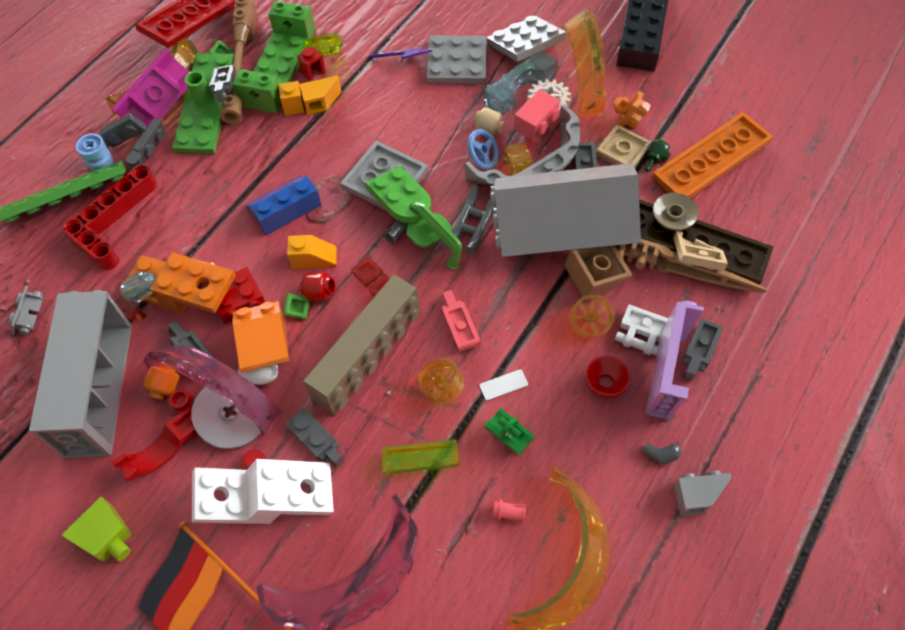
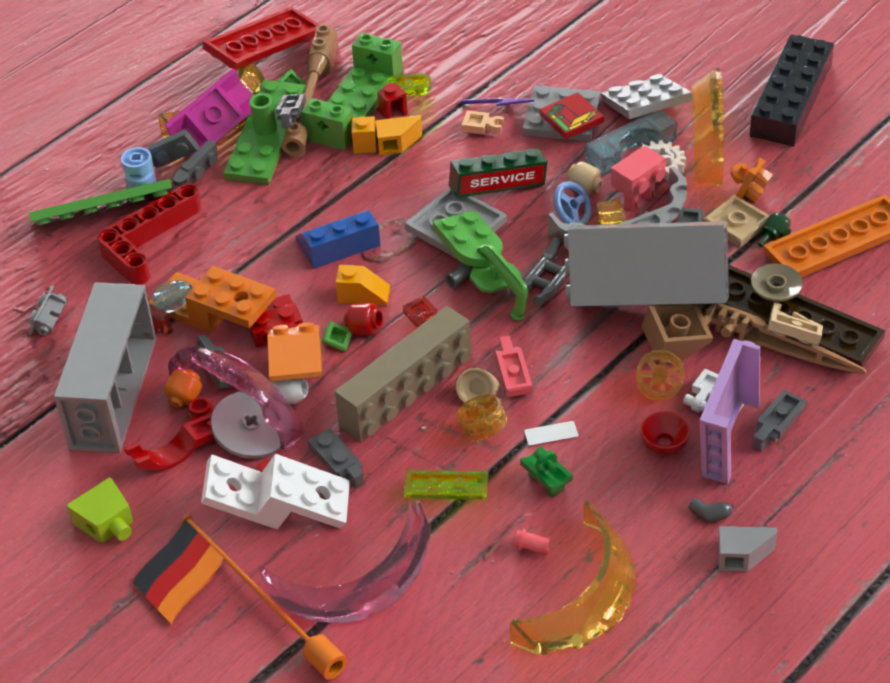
camera: 10 degrees right, 15 degrees down
(389, 75) = (479, 122): none -> light nougat plate
(413, 125) = (497, 173): none -> brick
(429, 346) = (476, 382): none -> tan piece
(467, 62) = (571, 115): none -> tile

